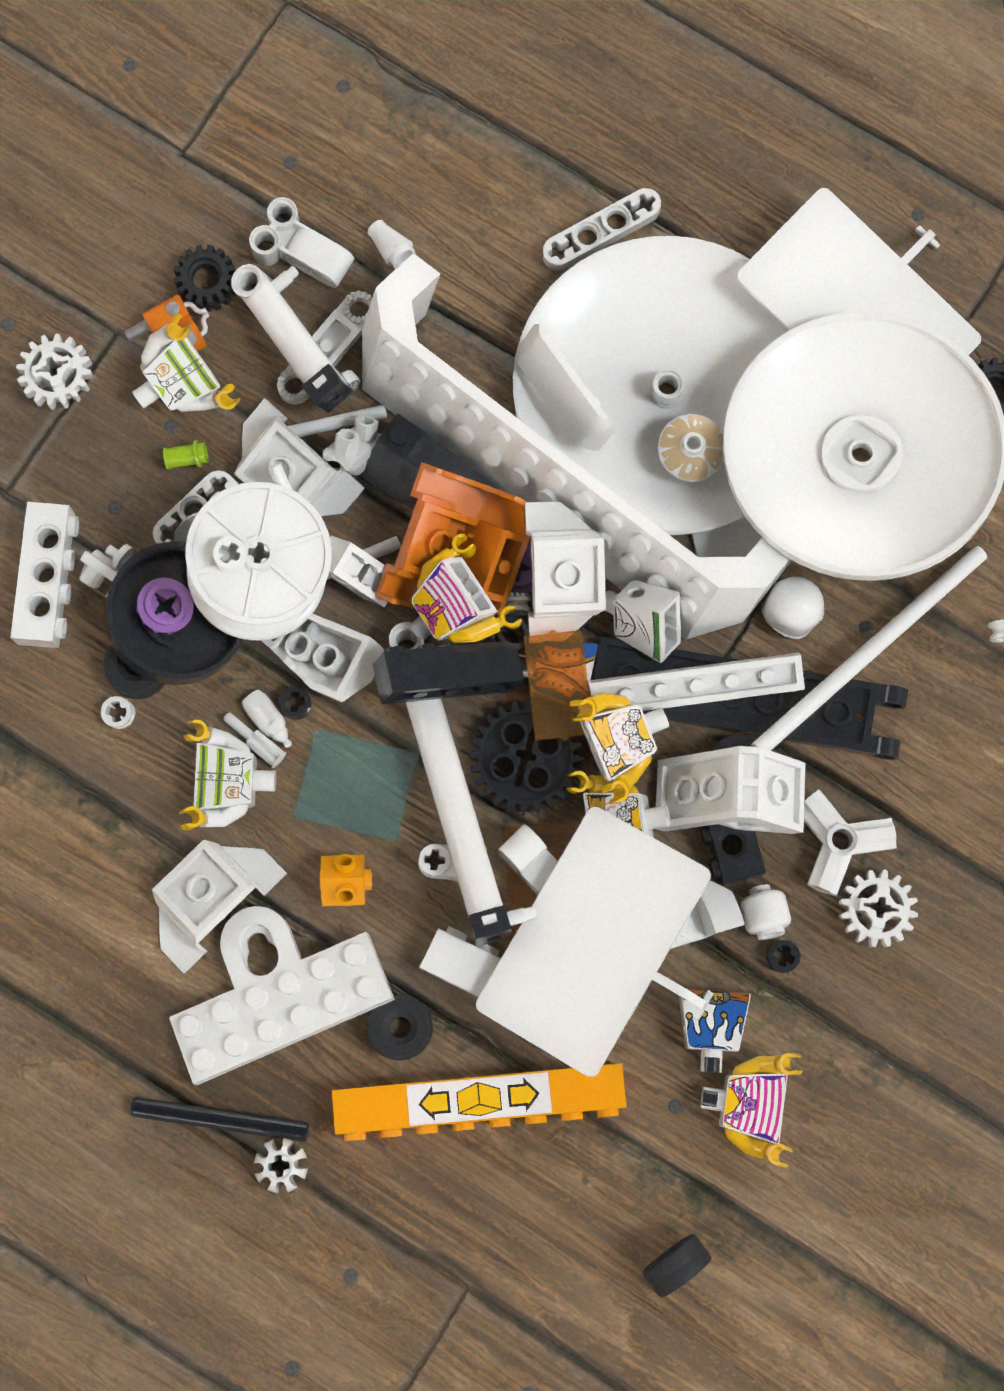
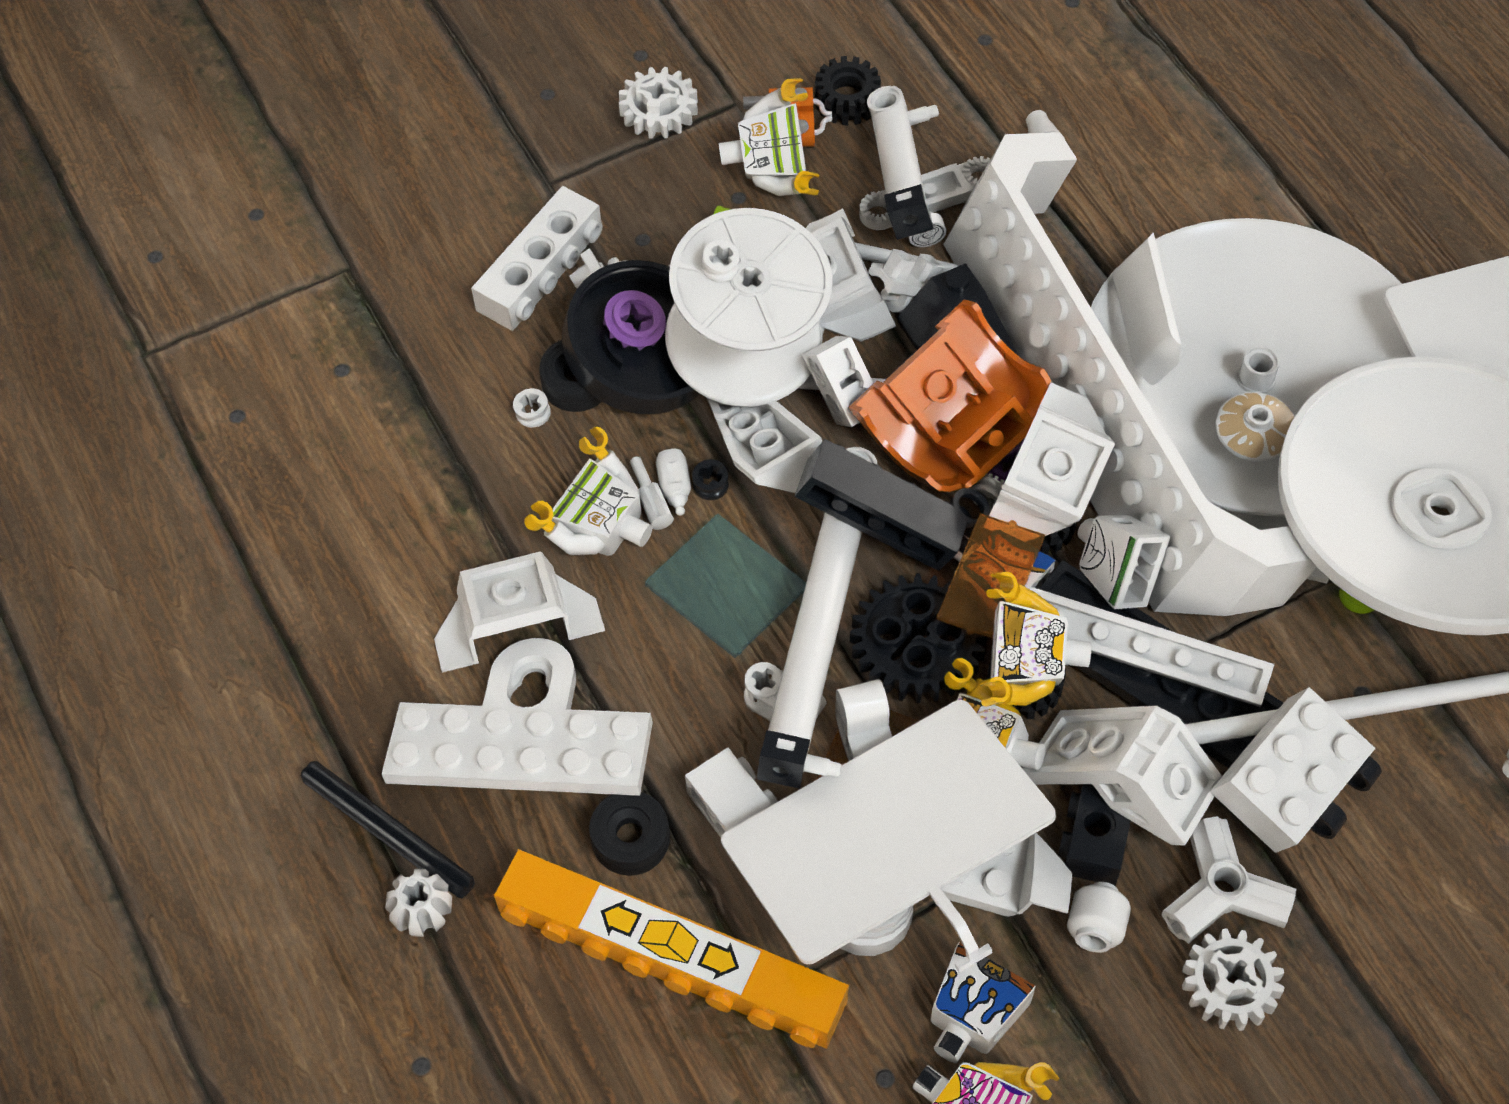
camera: 30 degrees right, 20 degrees down
(299, 246) = (959, 105): white piece -> none
(344, 880) = (658, 657): light orange brick -> none
(453, 600) = (925, 440): torso -> none
(599, 225) = (1264, 205): white beam -> none
(793, 952) = (1096, 963): black bush -> none
(794, 607) = (1292, 630): white helmet -> none
(852, 735) = (1292, 770): none -> white brick

